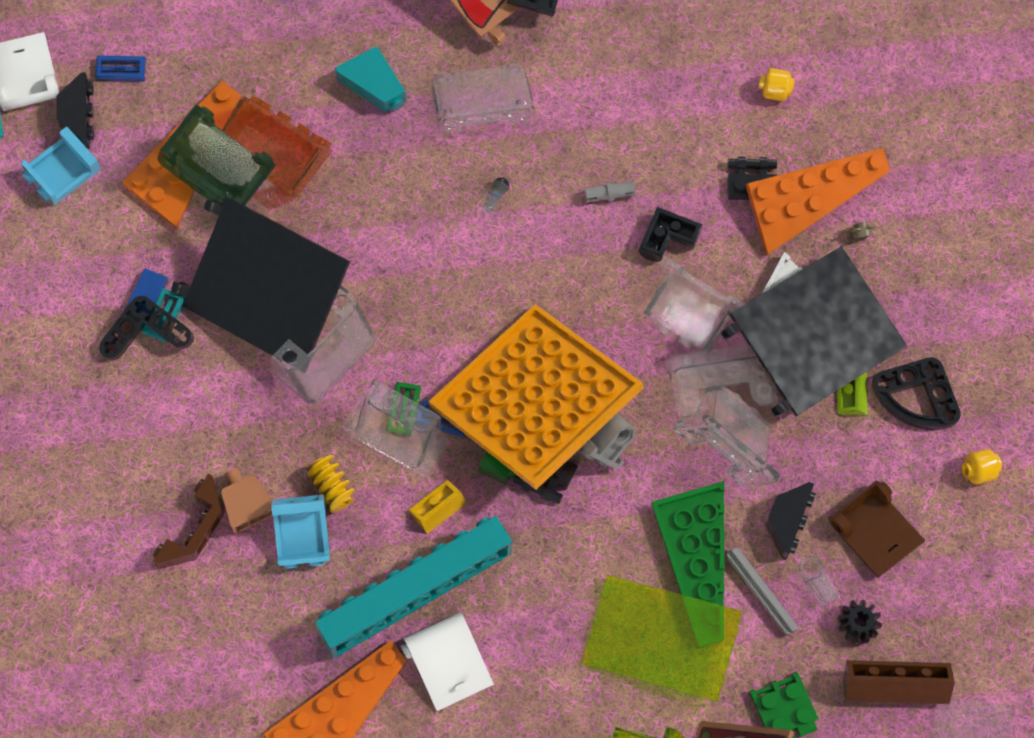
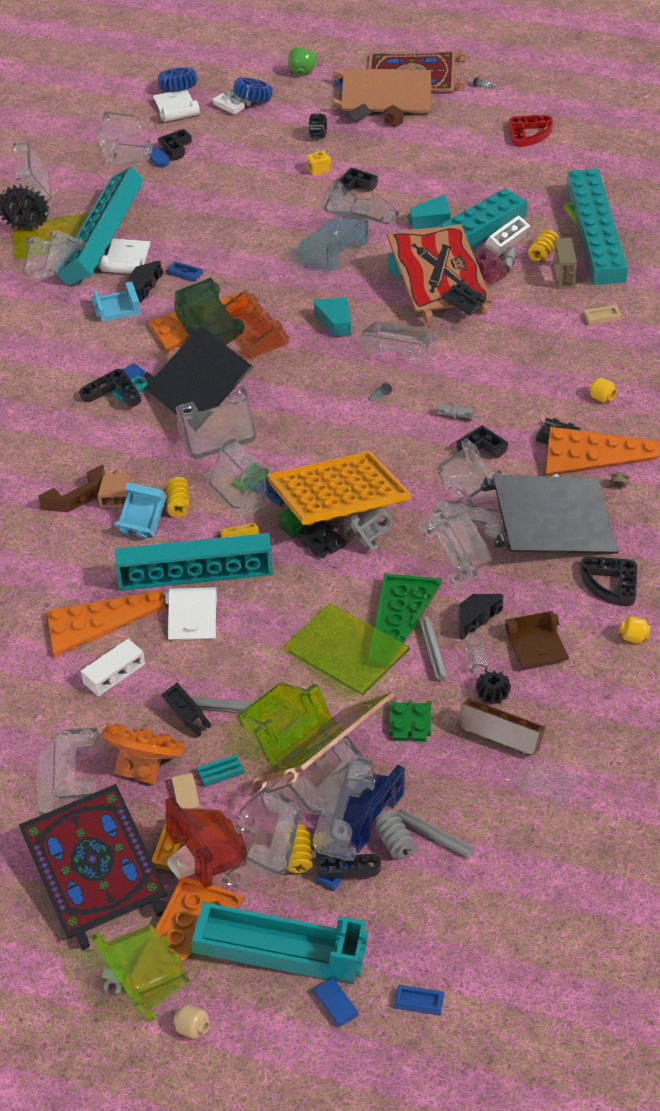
camera: 30 degrees right, 25 degrees down
(853, 397) = (564, 565): lime slope -> none

